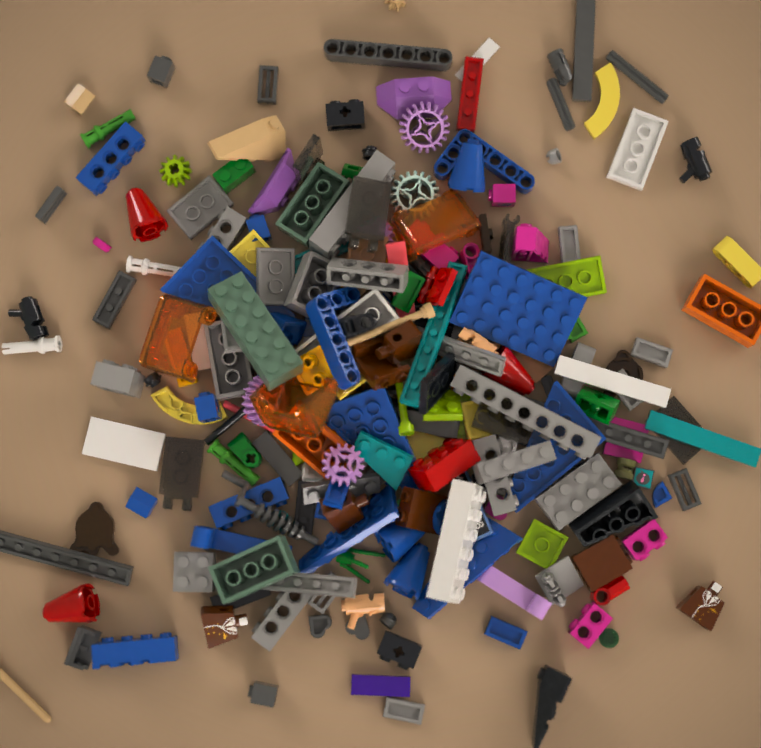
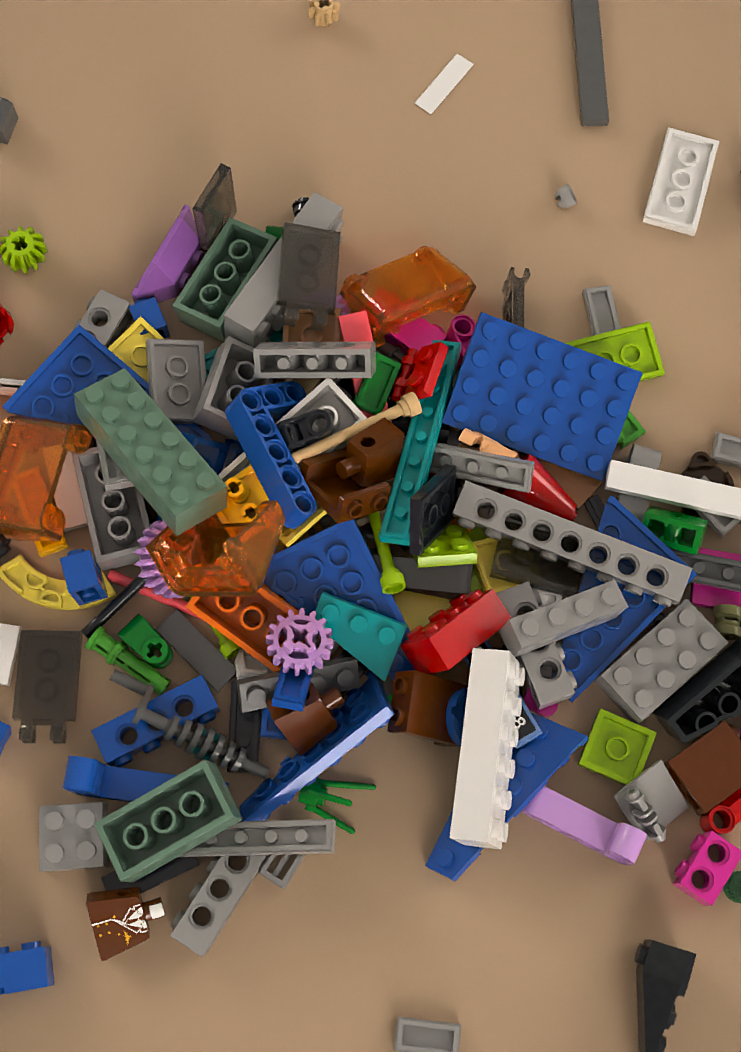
camera: 15 degrees left, 10 degrees down
(199, 207) = (59, 298): light grey tile -> none
(233, 174) = (108, 246): green brick -> none
(255, 141) = (138, 195): tan wedge -> none
(263, 693) = (196, 1030): dark grey brick -> none
(267, 100) = (151, 149): dark grey tile -> none
(319, 624) = (279, 907): dark grey tile -> none
(354, 118) = (265, 161): black brick -> none
(361, 629) = (342, 905): dark grey tile -> none
(362, 605) = (345, 867): light nougat piece -> none
(380, 685) = (386, 998): dark purple tile -> none
(381, 48) = (331, 76): dark grey beam -> none
(388, 620) = (389, 890): dark grey hinge -> none
(397, 540) = (392, 758): blue cone -> none
(400, 94) = (359, 130): medium lavender wedge -> none
(410, 572) = (416, 809): blue cone -> none
(410, 648) = (430, 932): black brick -> none
(419, 180) = (354, 250): light aqua gear -> none
(432, 124) = (373, 154): lavender gear -> none
(469, 168) = (449, 213): blue cone -> none
(470, 94) = (438, 125): red tile -> none
(485, 234) = (479, 300): dark brown plate -> none
(489, 153) = (468, 207): blue beam -> none
(502, 195) = (499, 251): dark pink brick -> none
(505, 632) = (576, 893): blue tile -> none
(529, 245) = (548, 307): dark pink wedge -> none
(560, 66) = (560, 81): dark grey hinge -> none
(560, 104) = (567, 130): dark grey axle -> none
(608, 102) = (633, 122): light yellow tile -> none
(637, 76) = (667, 89): dark grey axle -> none

